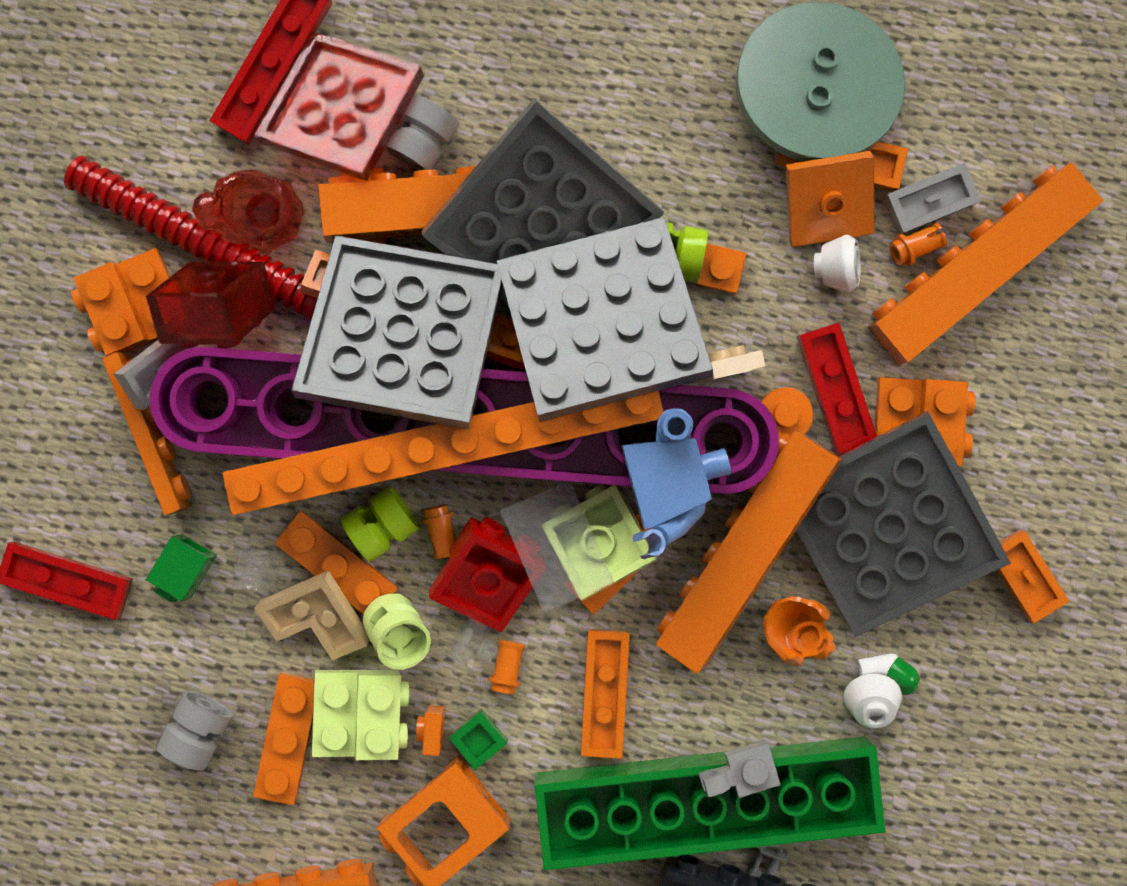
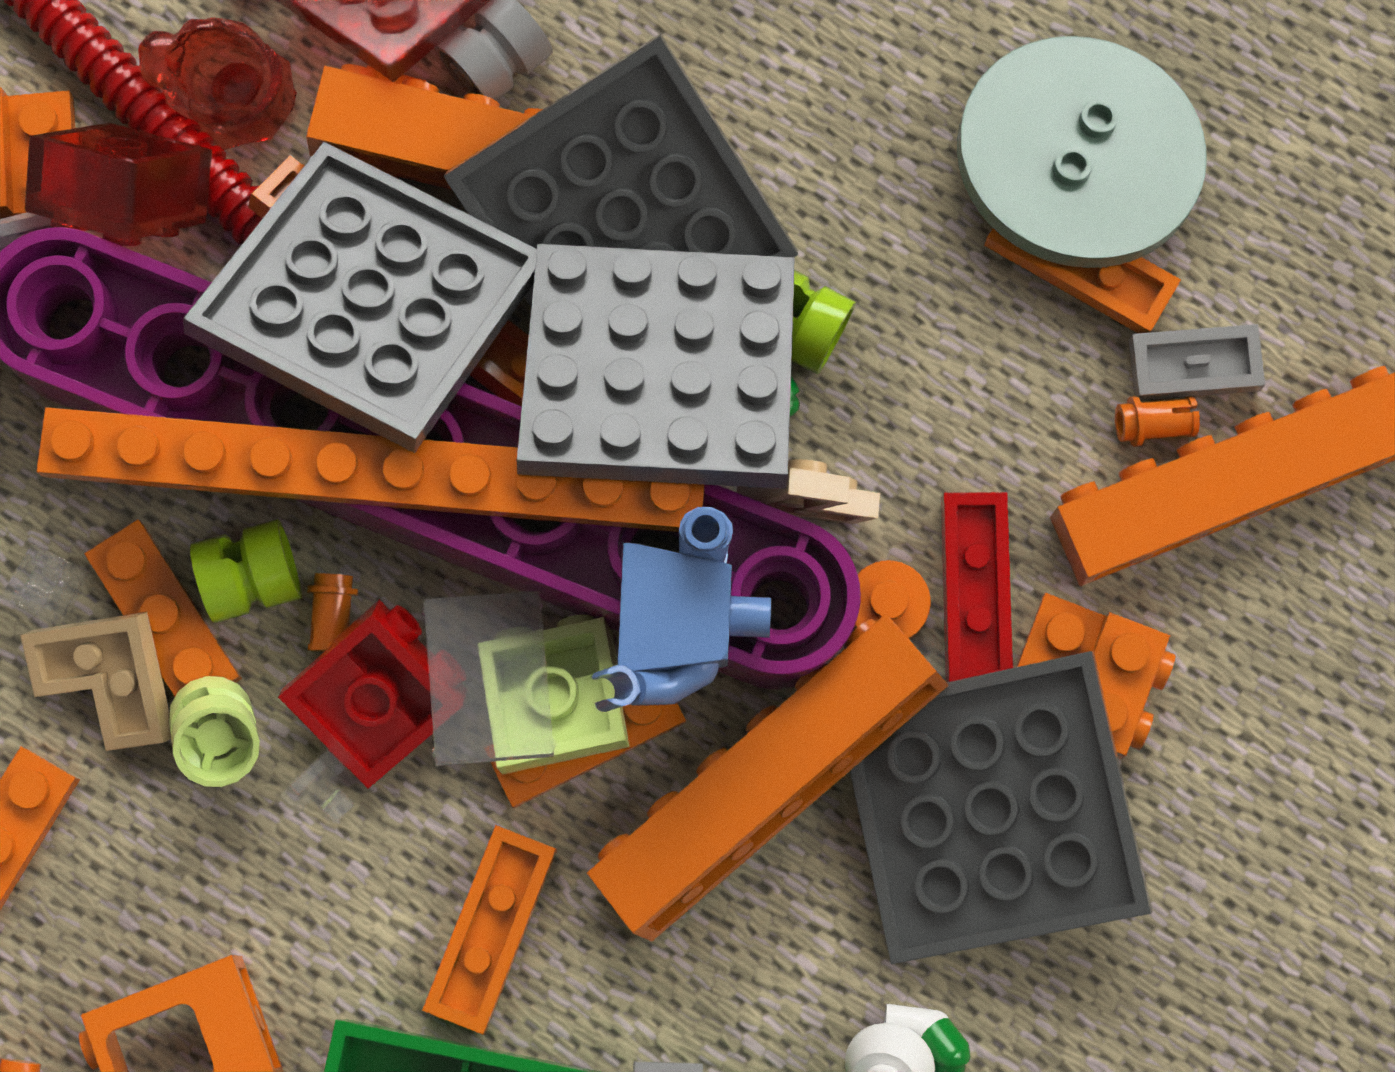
camera: 20 degrees right, 10 degrees down
(359, 714) = (115, 841): yellowish green plate -> none
(431, 730) = (214, 899): orange plate -> none
(478, 739) = (278, 937): green plate -> none
(507, 667) = (358, 843): orange pin -> none
(721, 269) = (860, 367): orange plate -> none
(797, 630) = (807, 922): orange hair -> none
(830, 198) = (1046, 314): orange plate -> none
(839, 264) = (1033, 410): white cone -> none
(1030, 578) = (1180, 959): orange plate -> none

